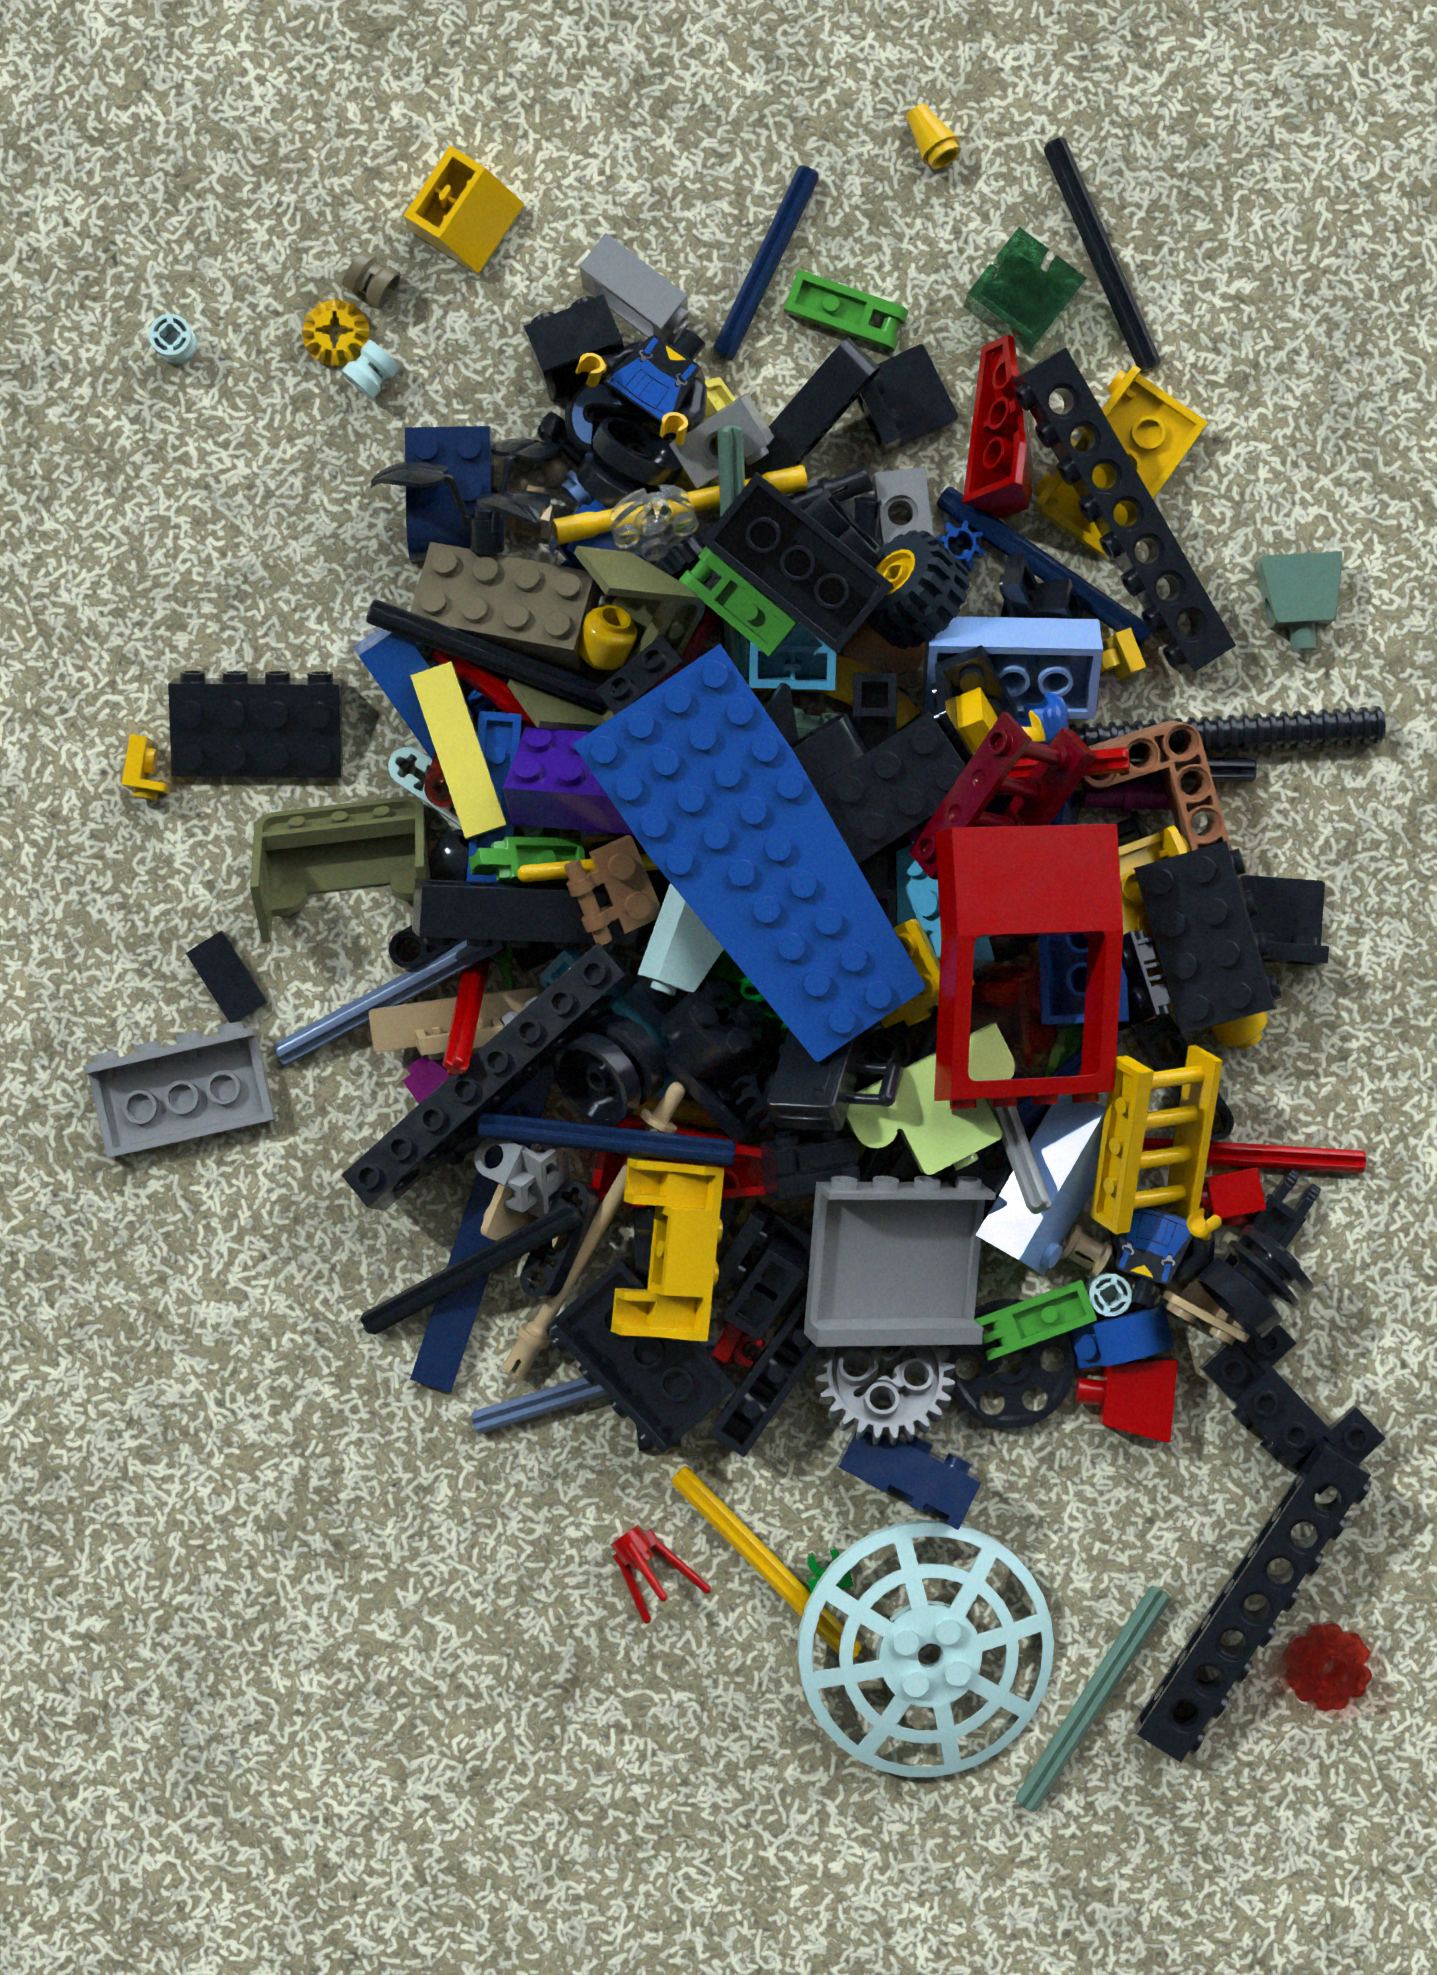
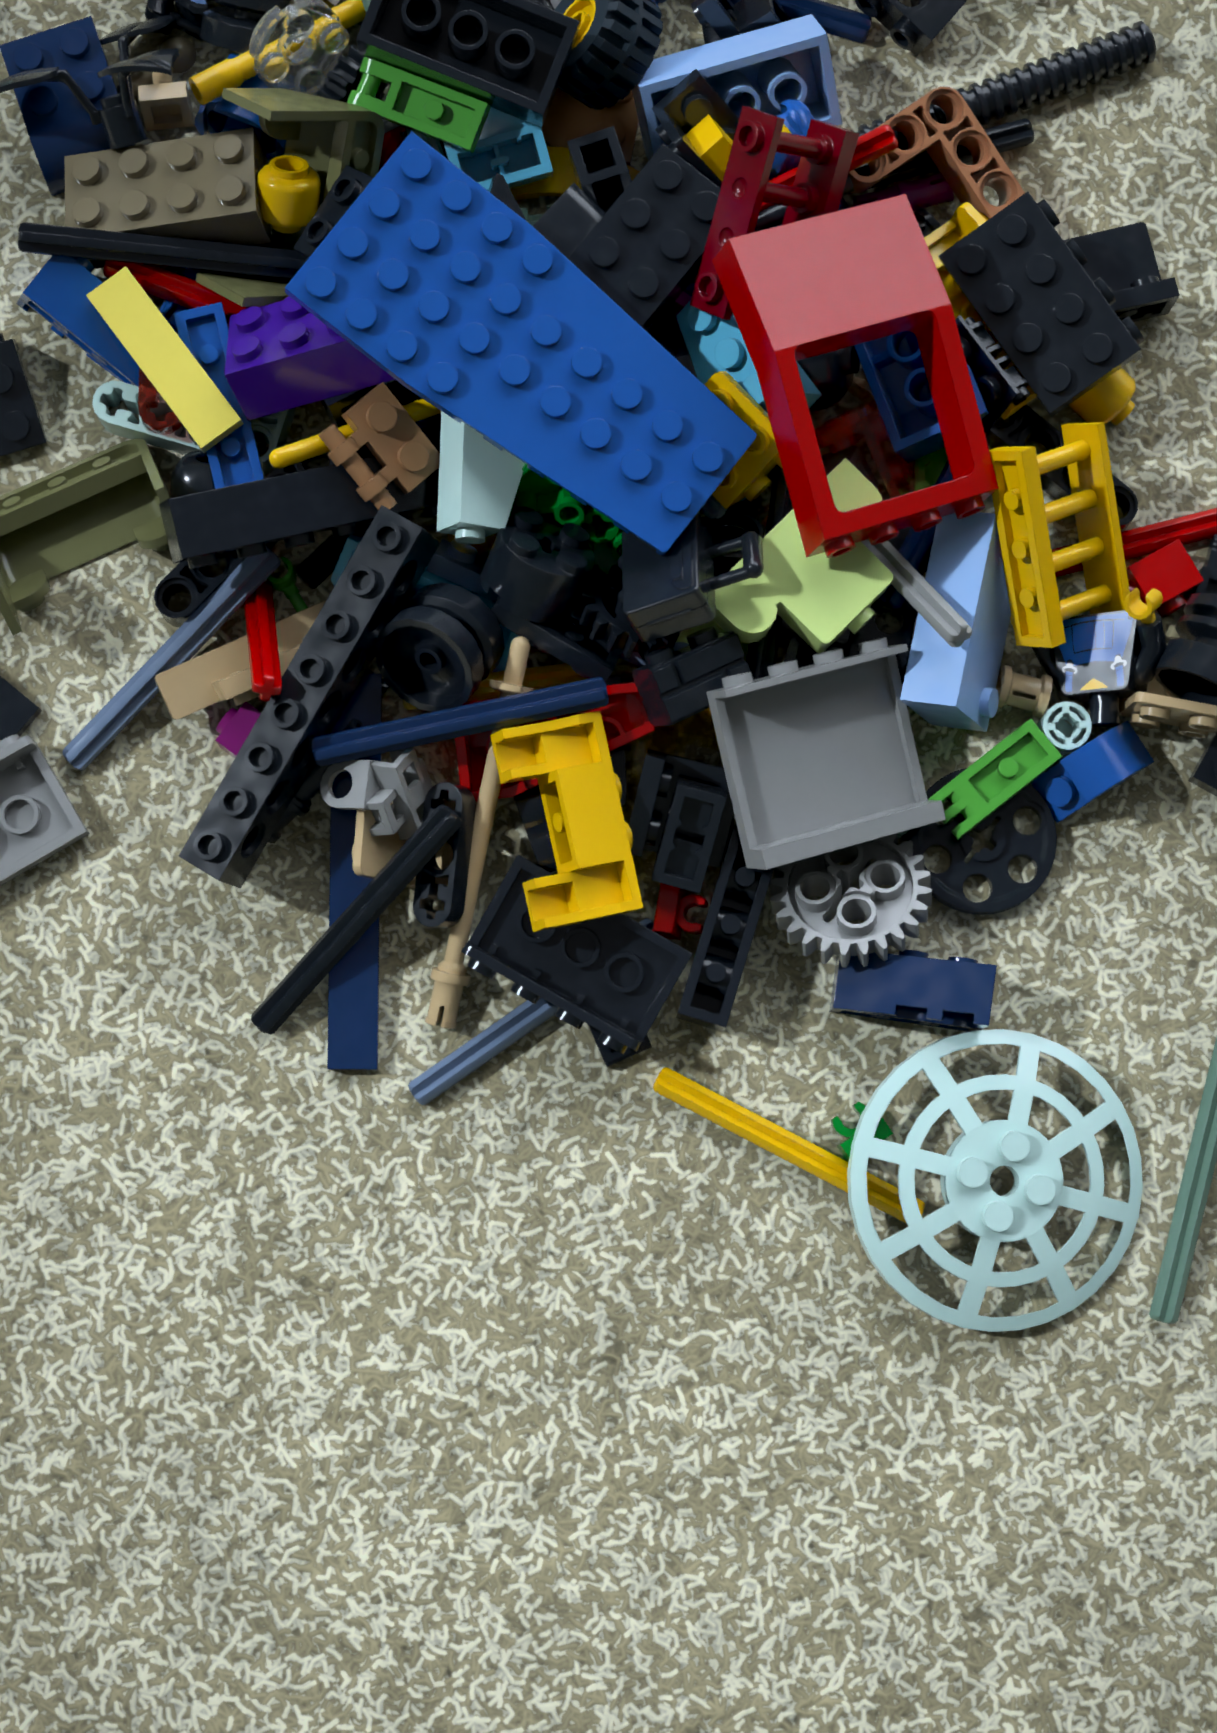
camera: 20 degrees left, 5 degrees down
(511, 853) = (251, 452): bright green hinge -> none
(576, 491) = (206, 55): light blue plate -> none
(635, 1550) = (638, 1176): red plant -> none
(1122, 655) = (850, 51): yellow tile -> none
(1134, 1396) = (1129, 830): red torso -> none

